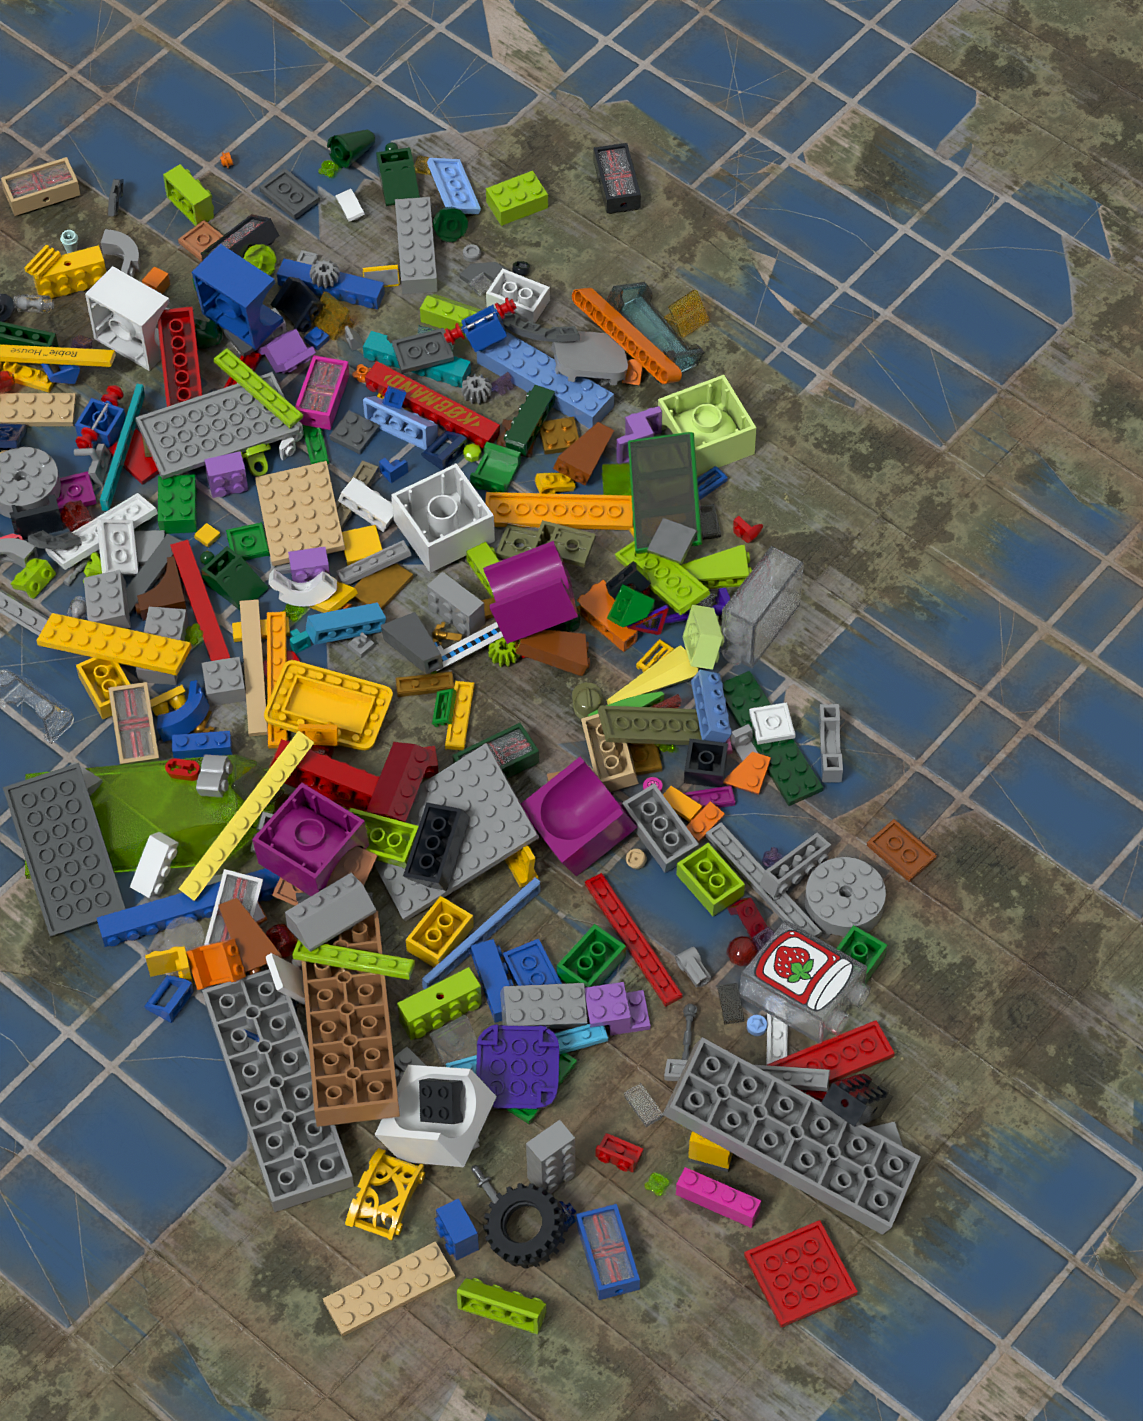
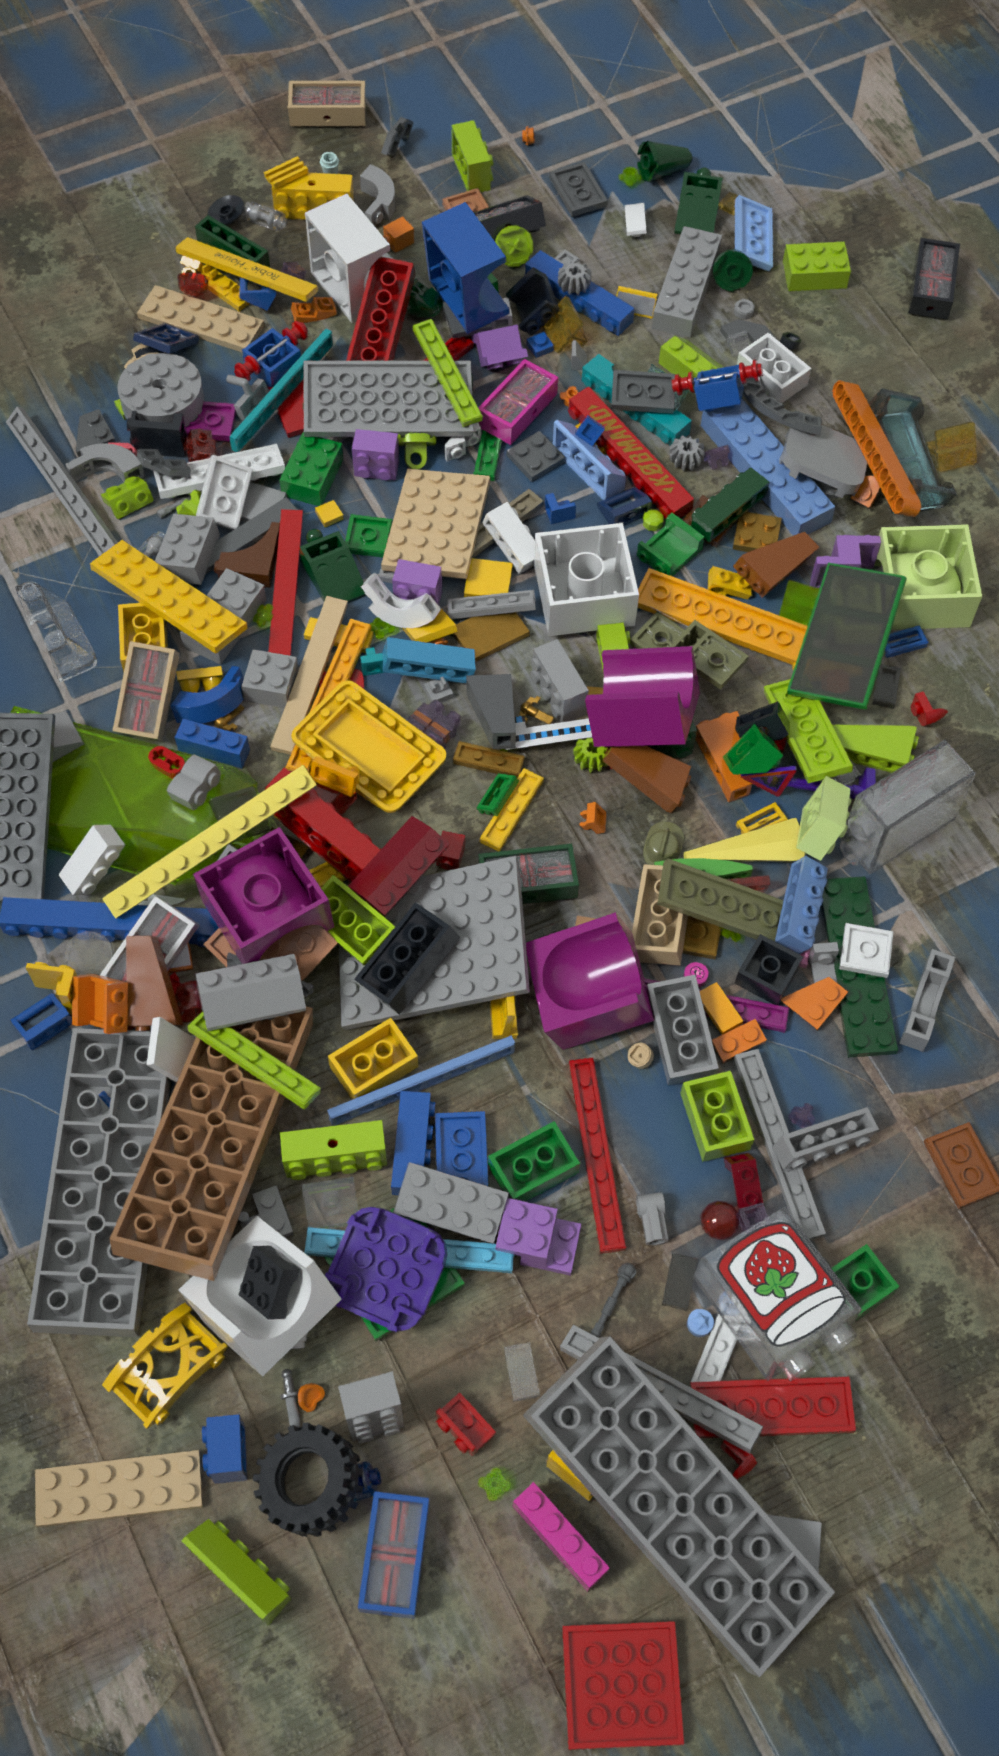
camera: 20 degrees right, 5 degrees up
(119, 368) = (319, 309): none -> orange slope
(371, 670) = (434, 724): none -> clear purple hips
(498, 1177) = (309, 1396): none -> orange piece
(528, 699) = (595, 818): none -> orange tile
(672, 541) = (833, 694): flat silver tile -> none
(844, 895) = (887, 1181): light grey brick -> none
(857, 1099) = (781, 1484): black brick -> none

